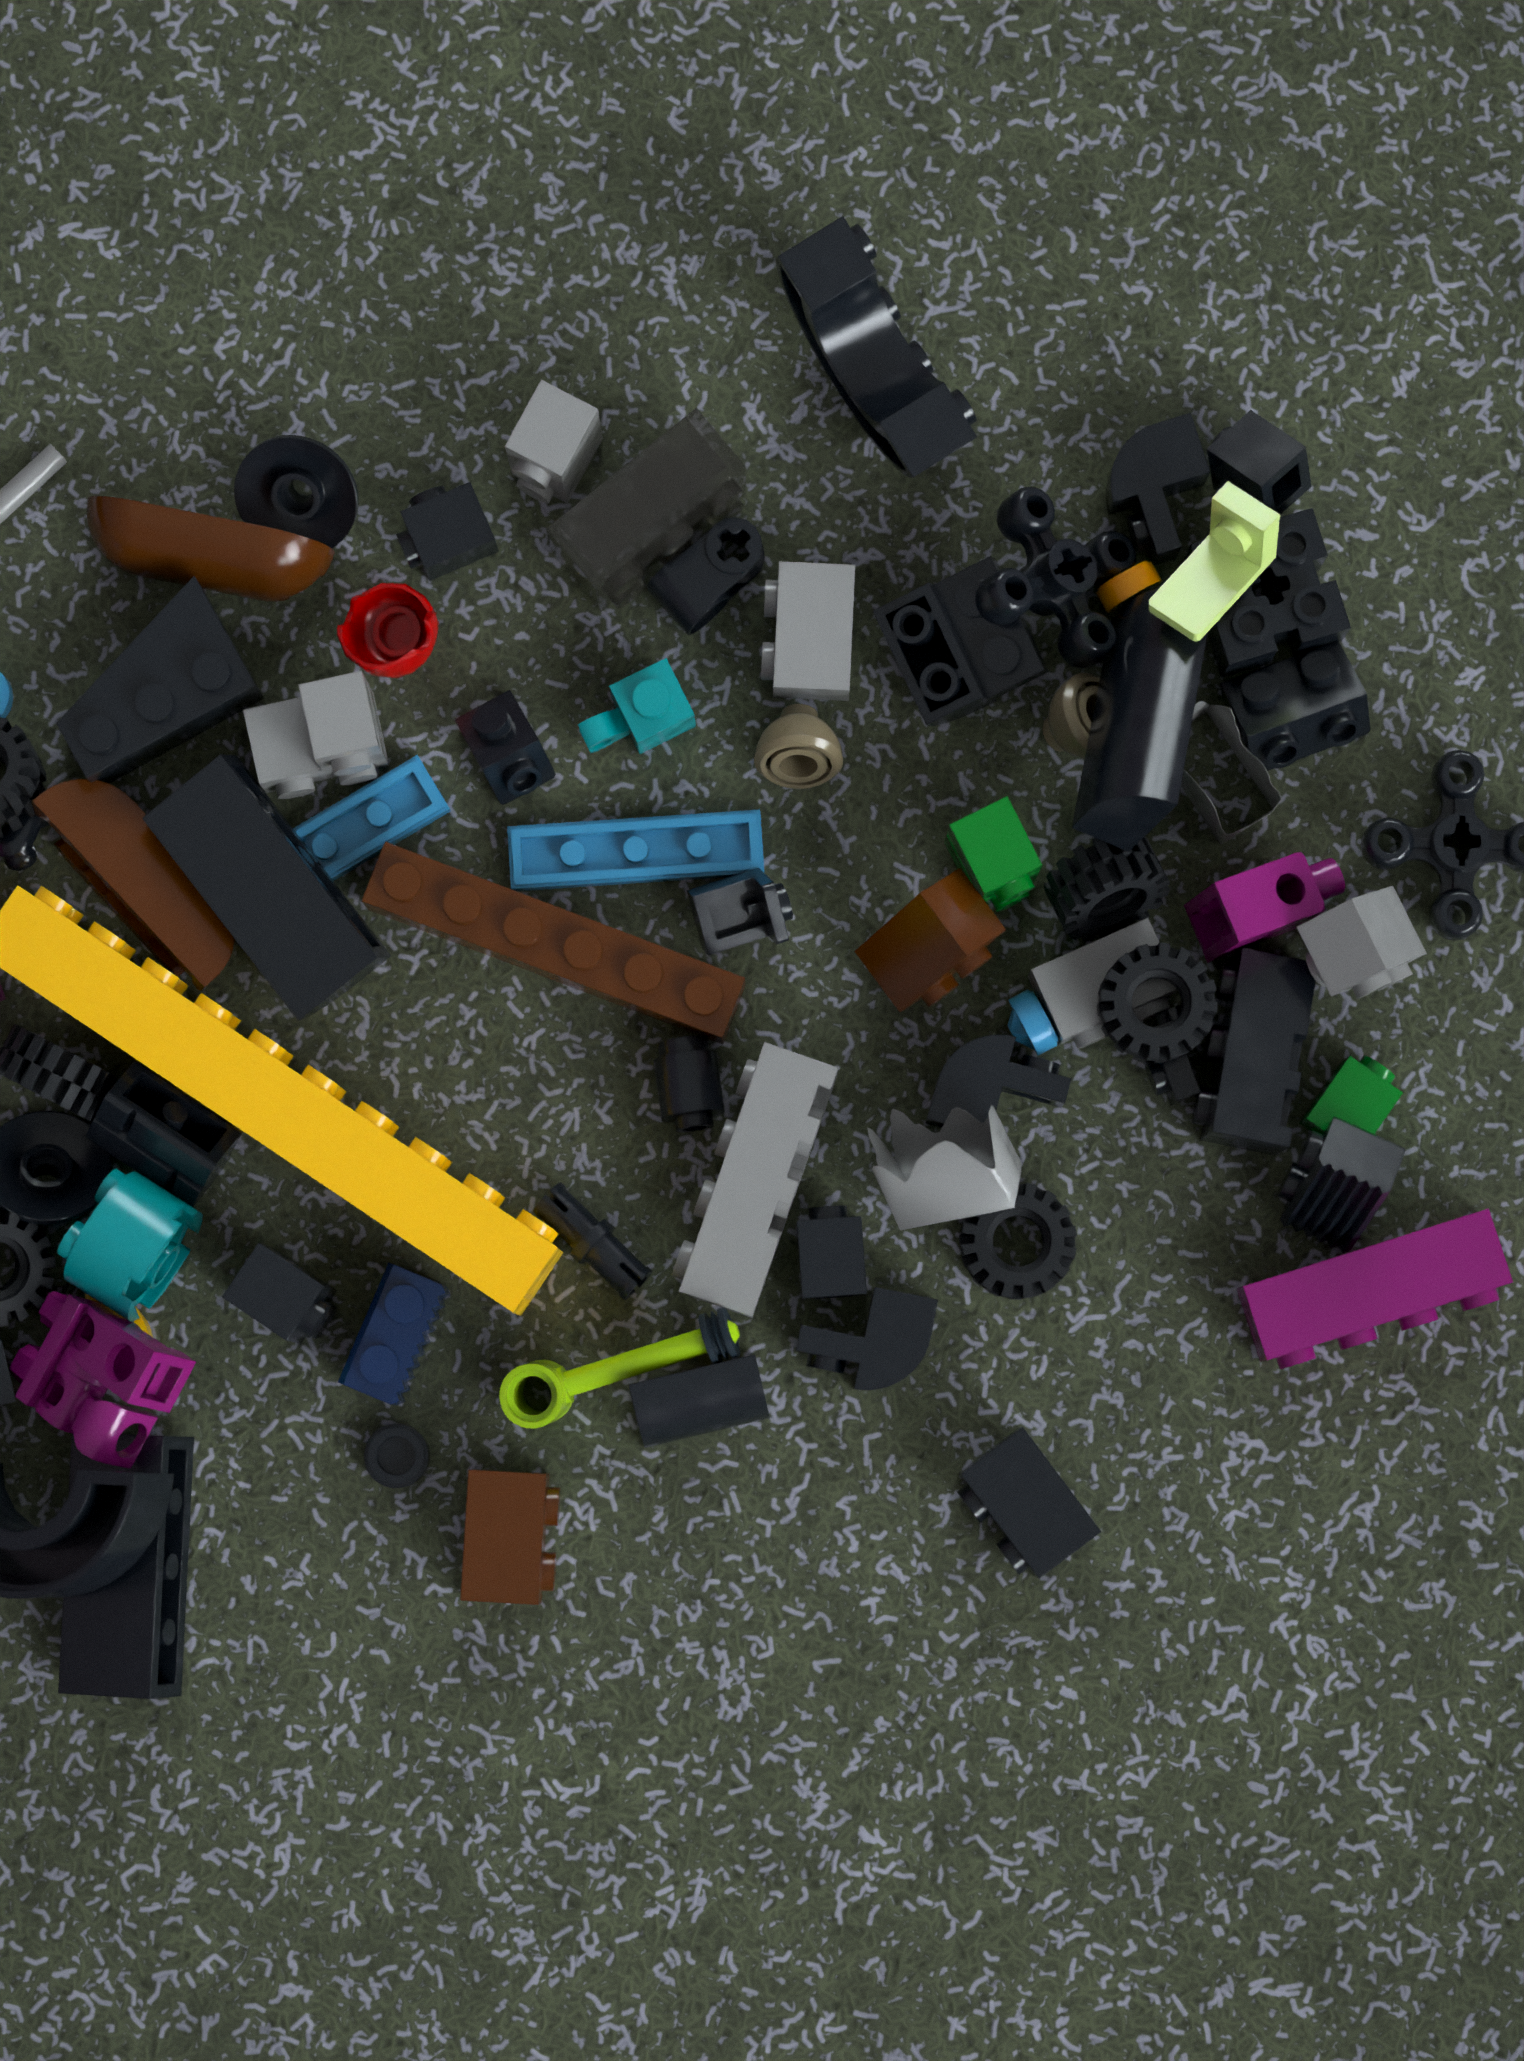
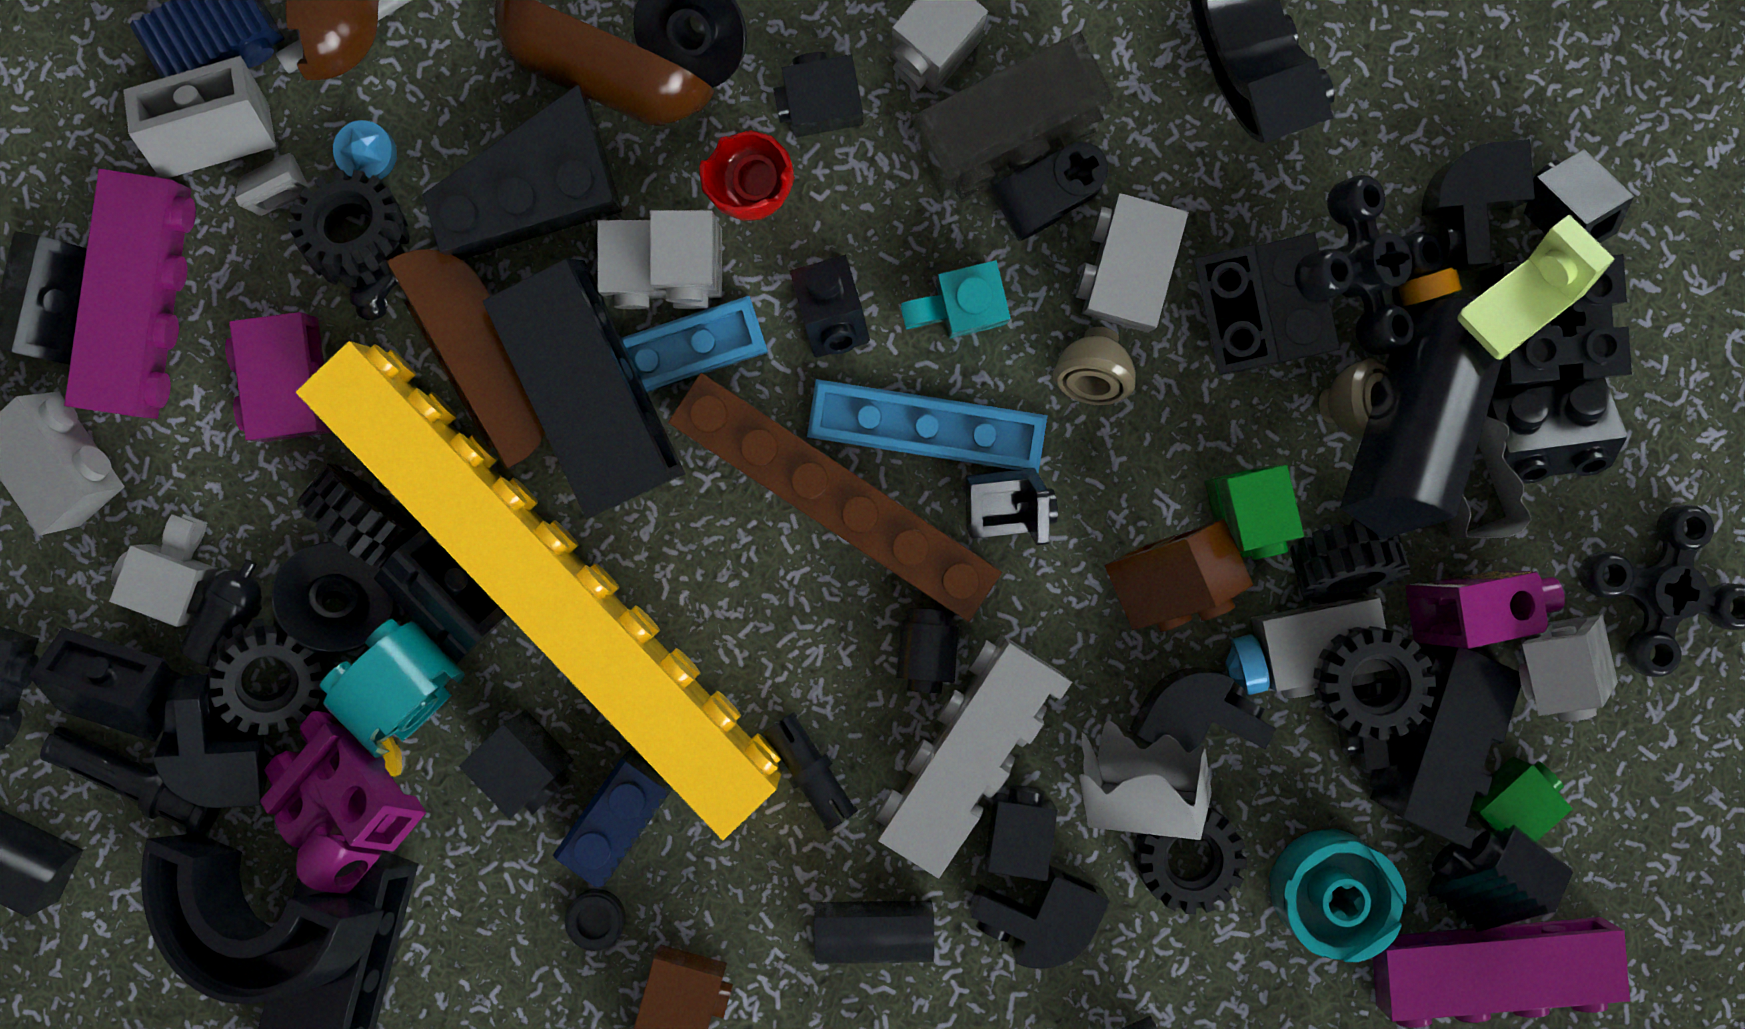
camera: 10 degrees right, 5 degrees up
(715, 1336) = (901, 889): lime piece -> none
(1216, 1241) = (1370, 890): none -> teal brick

